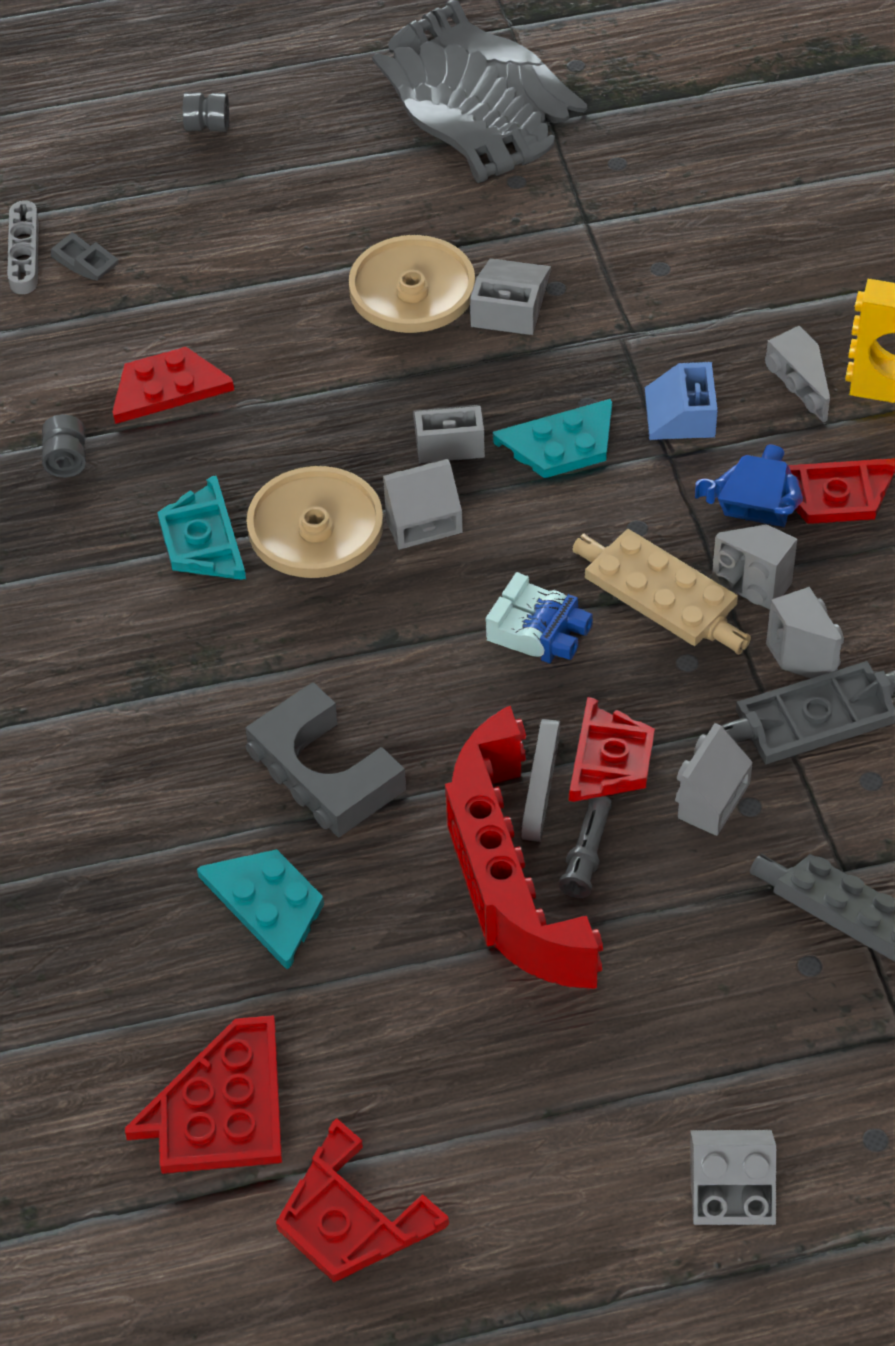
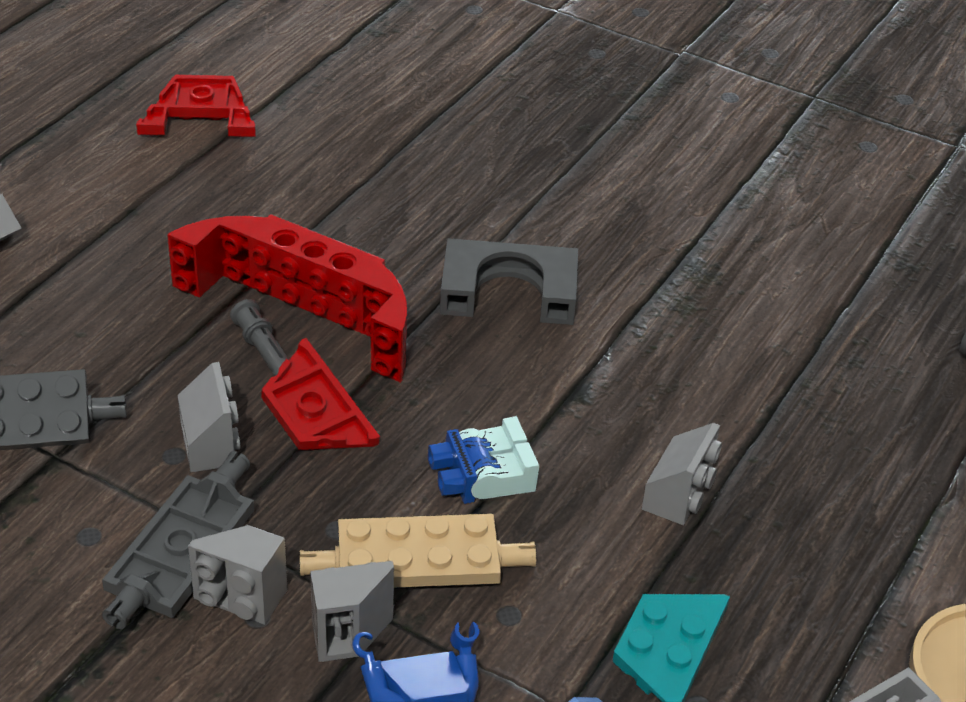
camera: 130 degrees right, 10 degrees down
(201, 534) = (809, 361): teal wing -> none
(221, 1105) = (330, 106): red wing -> none
(267, 899) = (441, 204): teal wing -> none
(315, 521) = (758, 404): tan dish -> none
(449, 433) = (763, 560): light grey slope -> none
(541, 780) = (347, 360): light grey beam -> none

